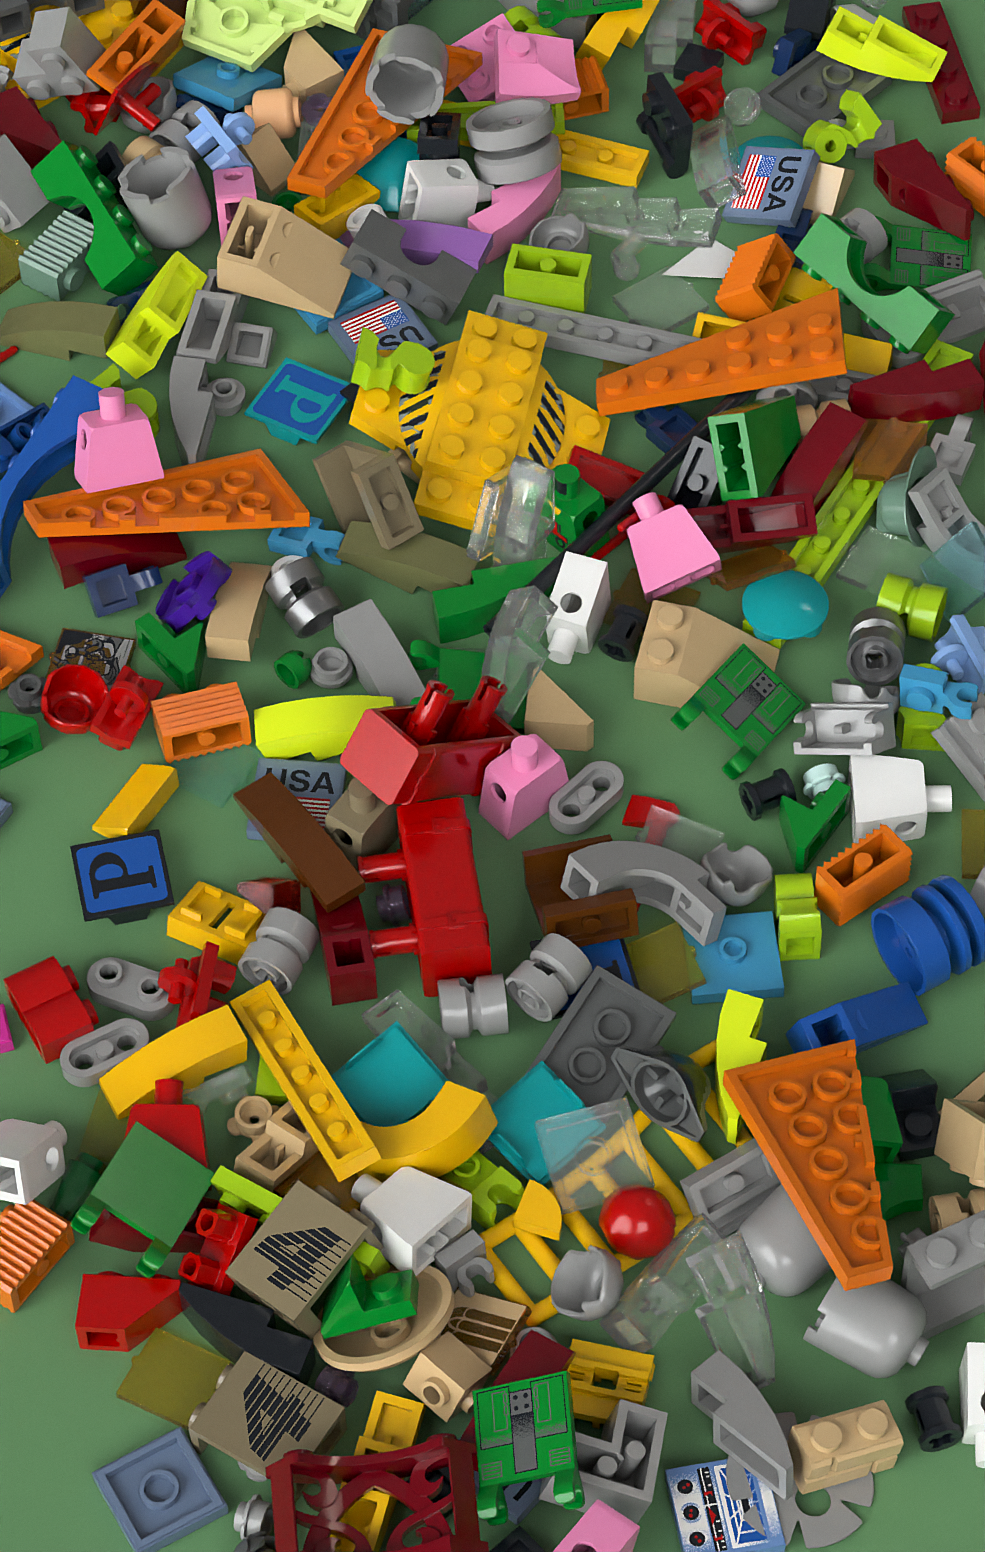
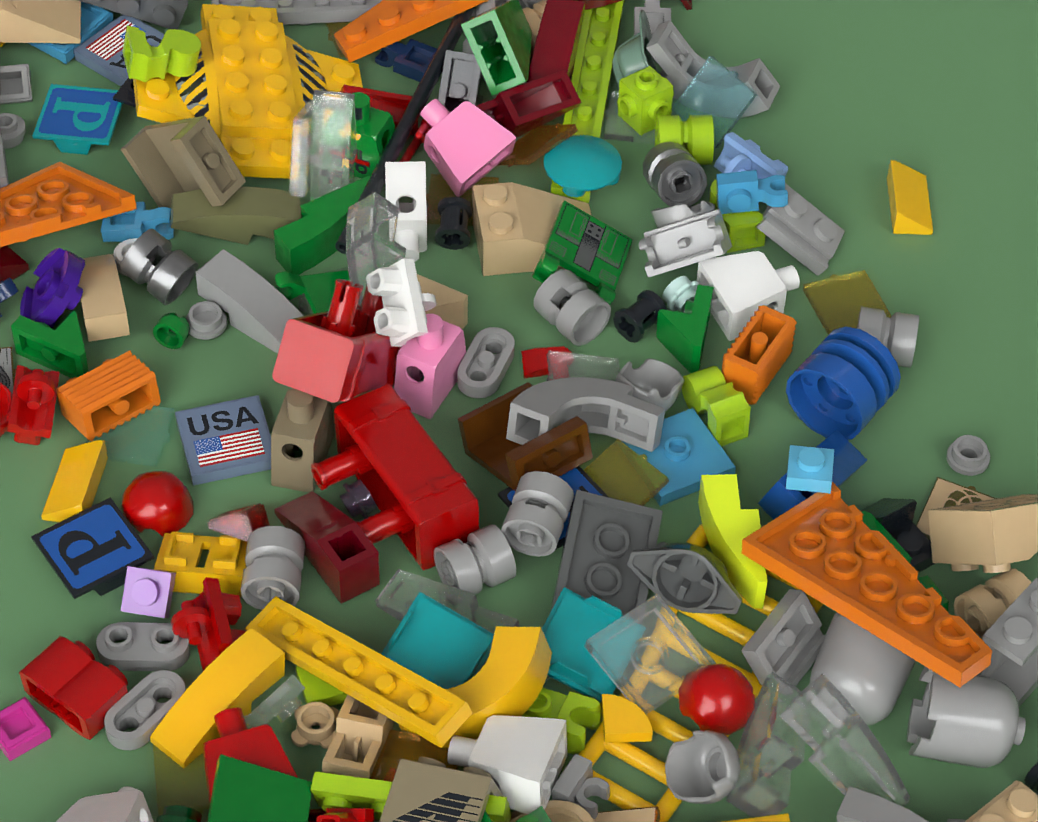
camera: 25 degrees left, 5 degrees down
(155, 936) = (148, 592): none -> plate
(203, 848) = (157, 502): none -> red hair
(300, 842) = (253, 467): reddish brown slope -> none
(312, 725) = (221, 368): neon yellow slope -> none
(500, 718) = (402, 302): none -> white hips
(698, 764) = (572, 307): none -> light grey wheel
(833, 1018) = (810, 469): none -> medium azure plate
(887, 448) = (606, 28): clear orange piece -> none
(889, 547) = (643, 98): none -> lime brick

